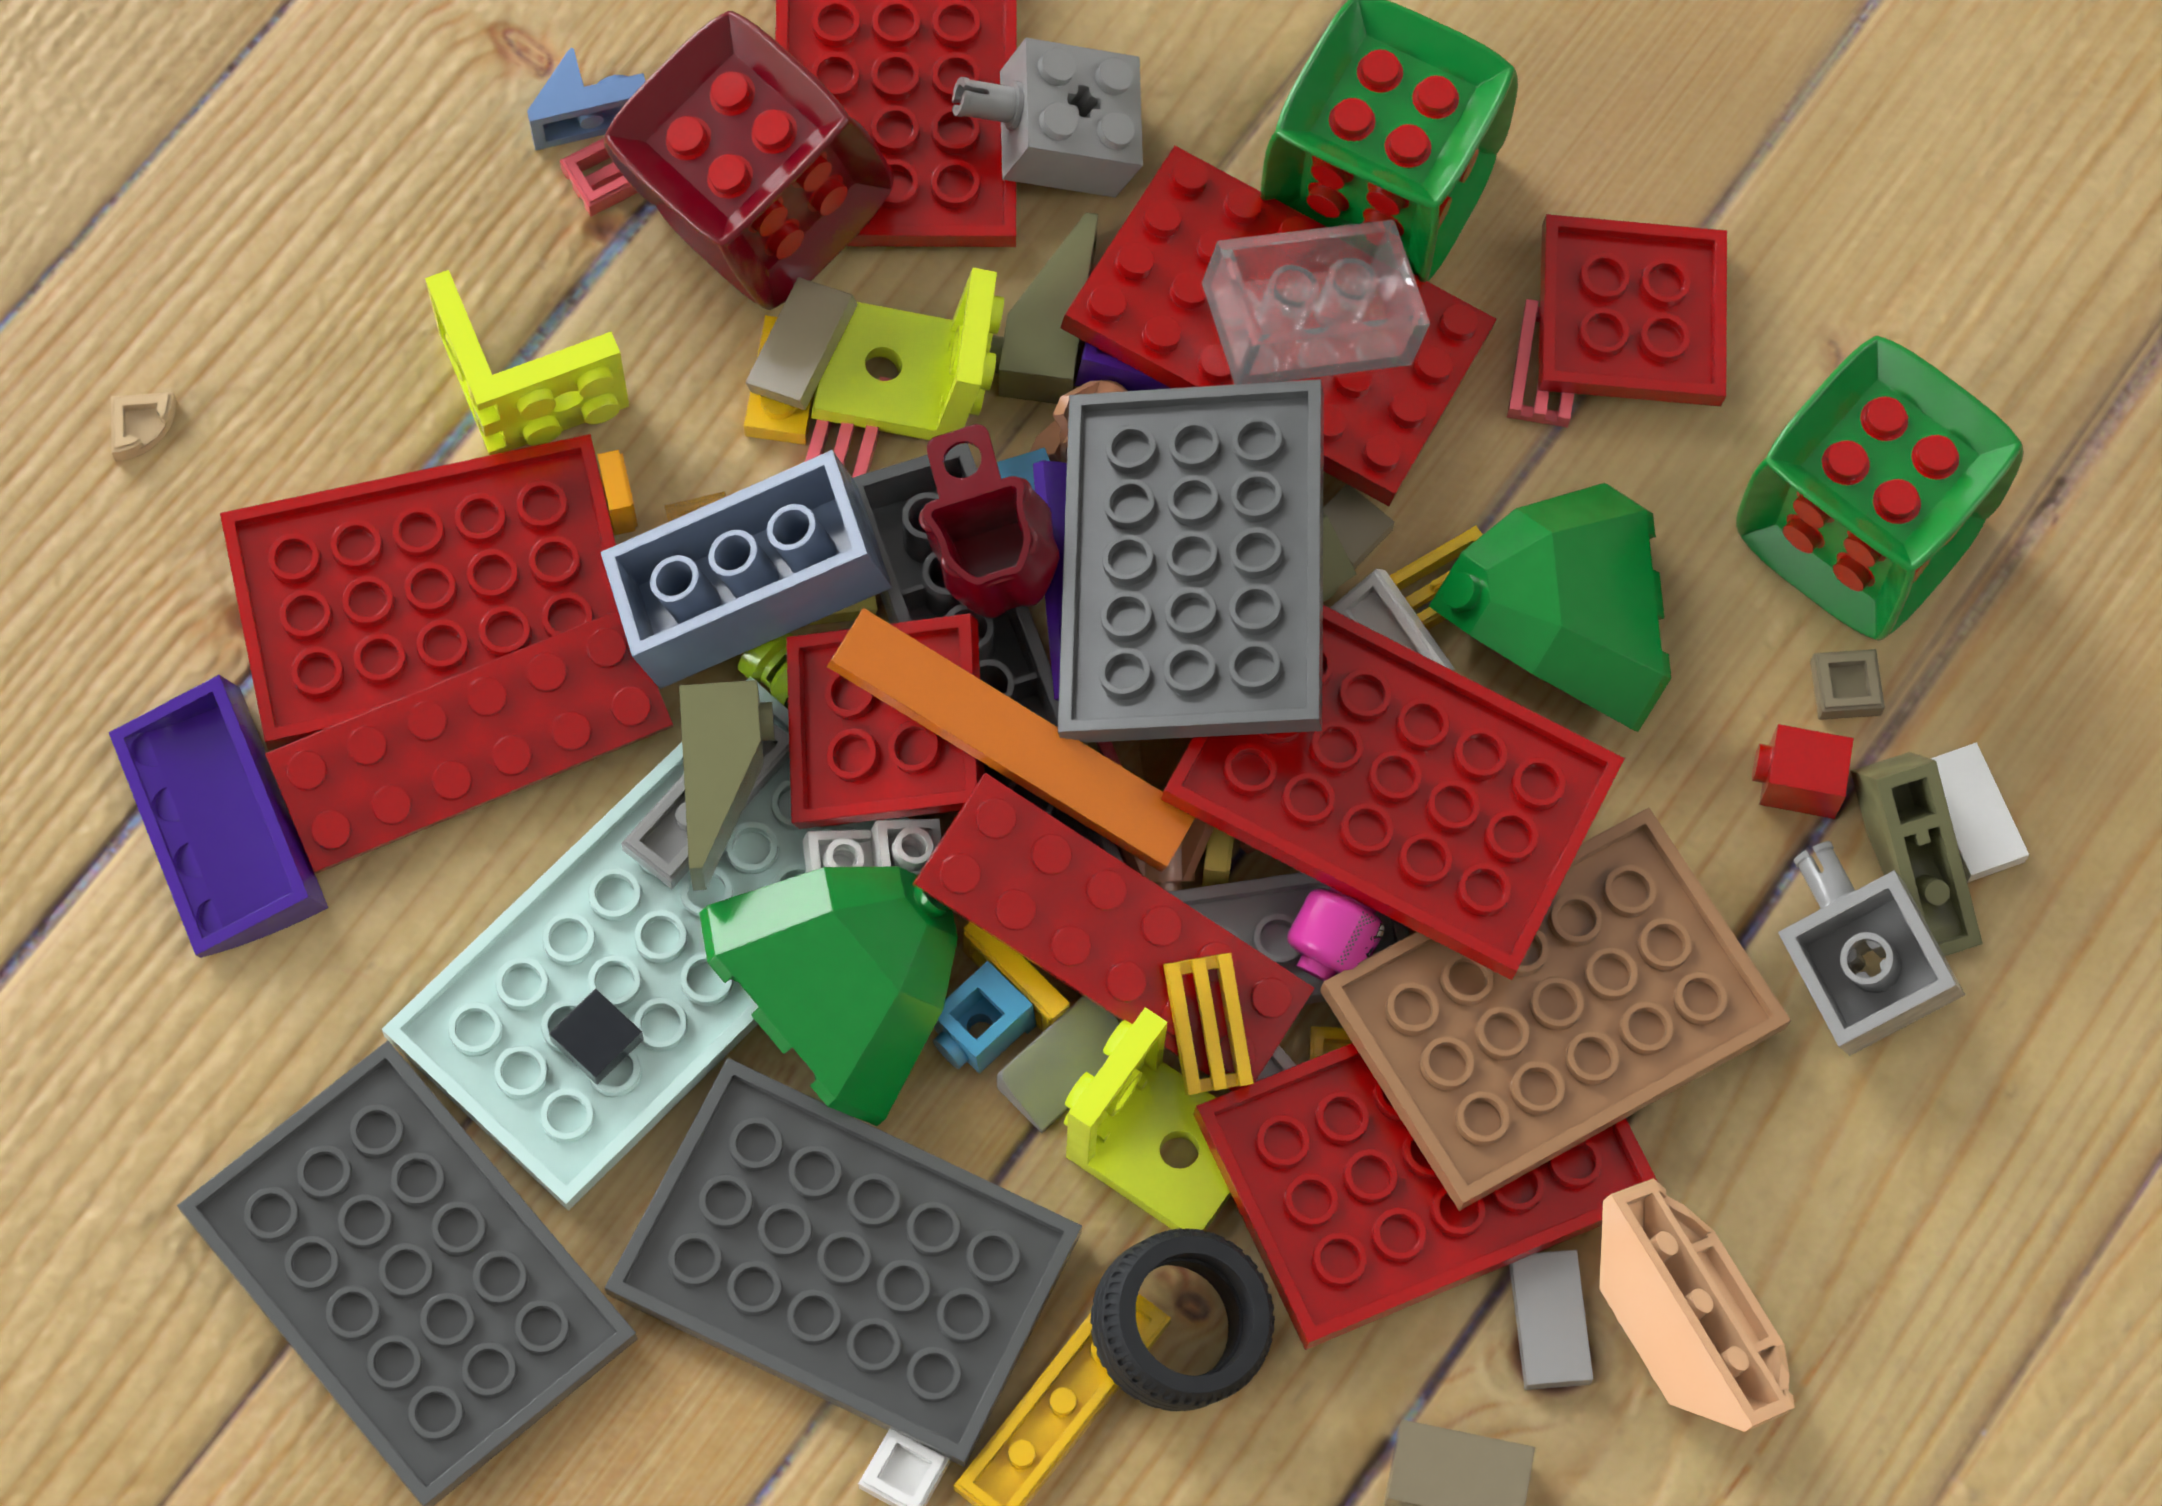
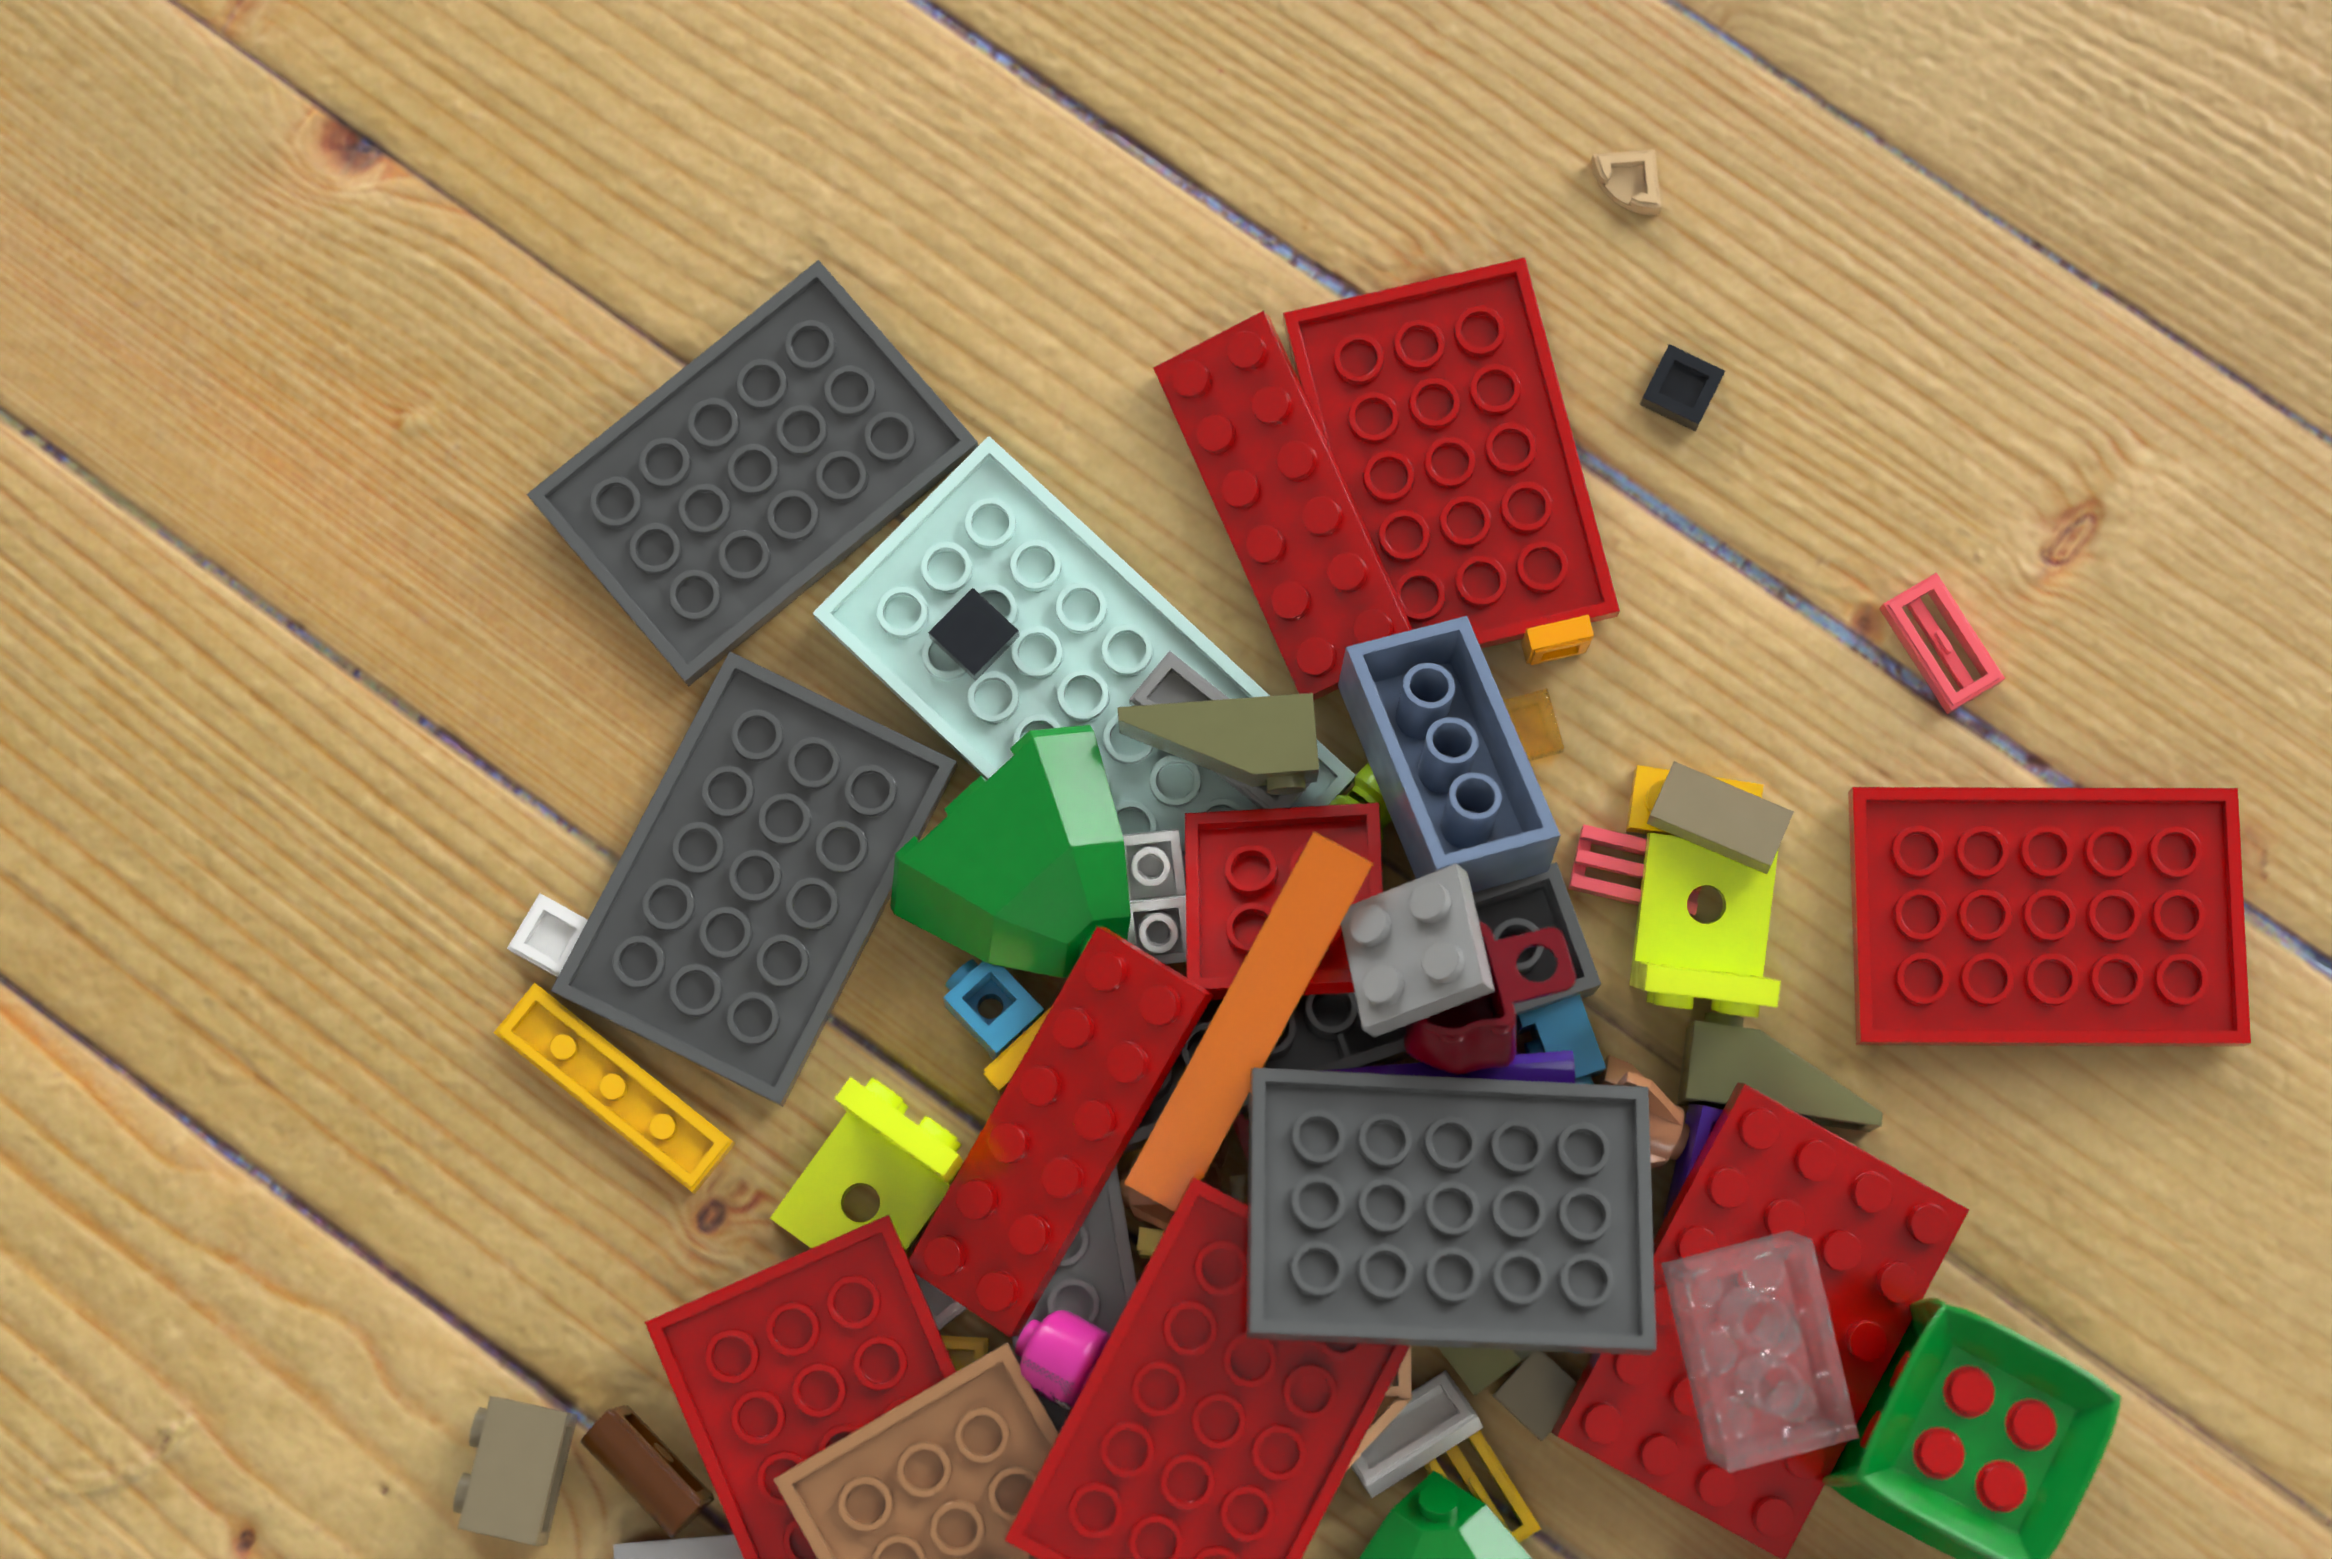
camera: 95 degrees right, 10 degrees up
(217, 818) = (1209, 274): dark purple slope -> none
(360, 380) = (1682, 387): none -> black tile
(535, 398) = (1644, 547): neon yellow bracket -> none
(572, 112) = (1993, 580): medium blue slope -> none
(749, 159) = (1910, 750): dark red piece -> none
(947, 573) = (1416, 950): none -> light grey plate
(1053, 1063) = (946, 1084): light grey slope -> none
(1063, 116) = (1970, 1068): light grey brick -> none
(1234, 1022) = (913, 1234): yellow tile -> none
(1241, 1291) = (620, 1235): black tyre -> none
(1453, 1353) = (647, 1469): none -> reddish brown brick

